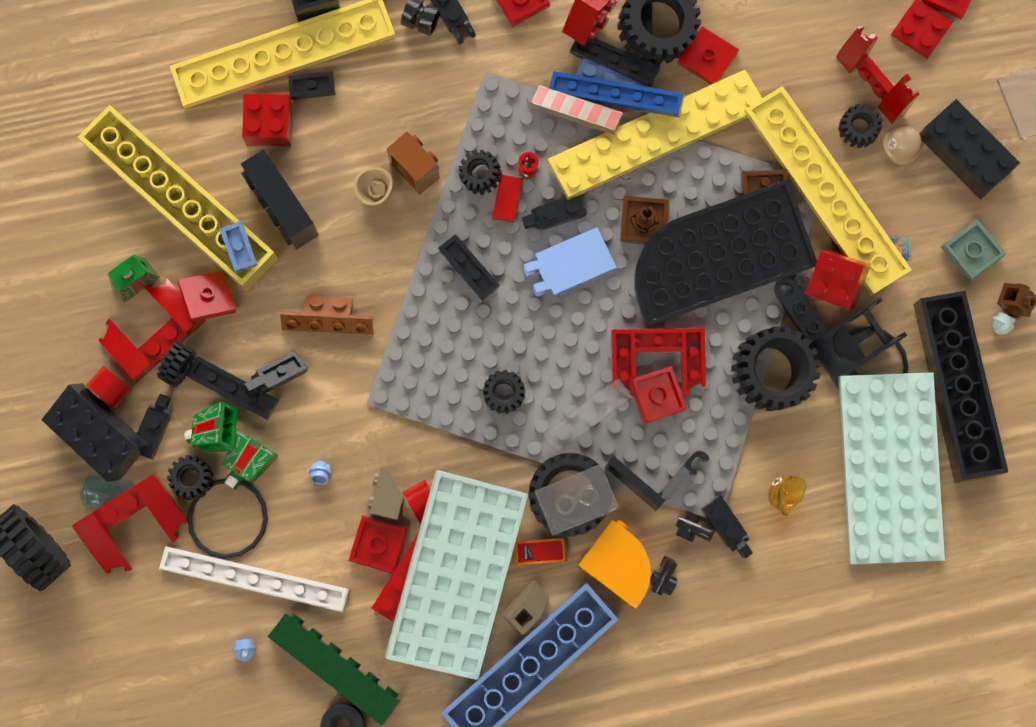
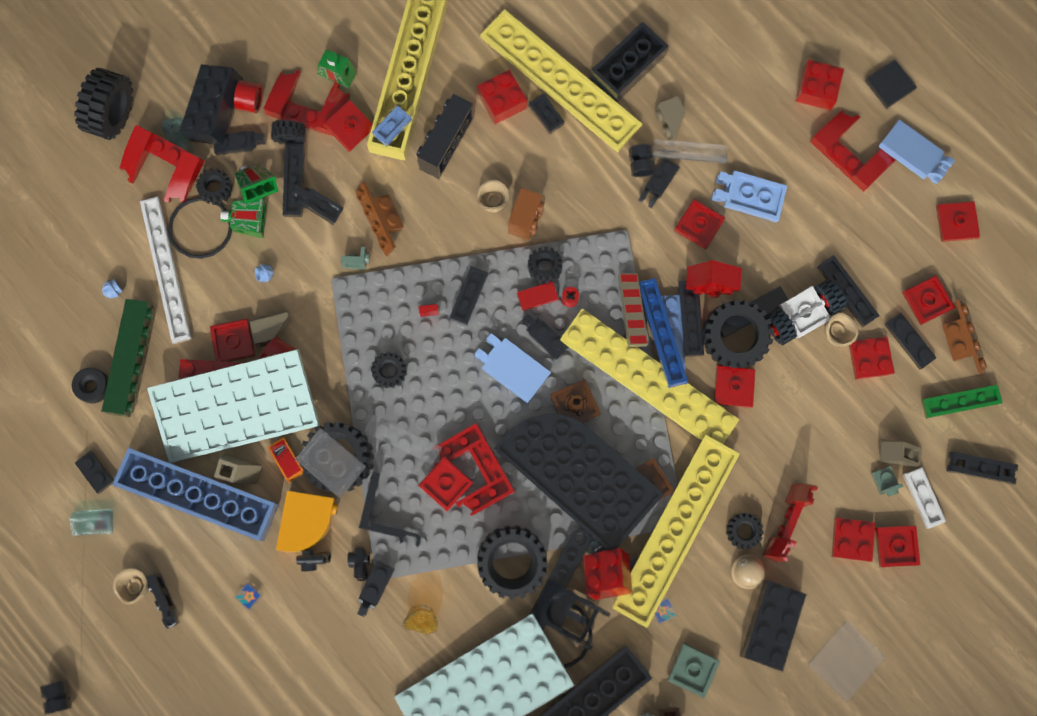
camera: 60 degrees right, 0 degrees up
(361, 370) = (353, 261): none -> sand green bracket
(462, 316) = (428, 310): none -> red tile
(667, 665) = (248, 596): none -> tile

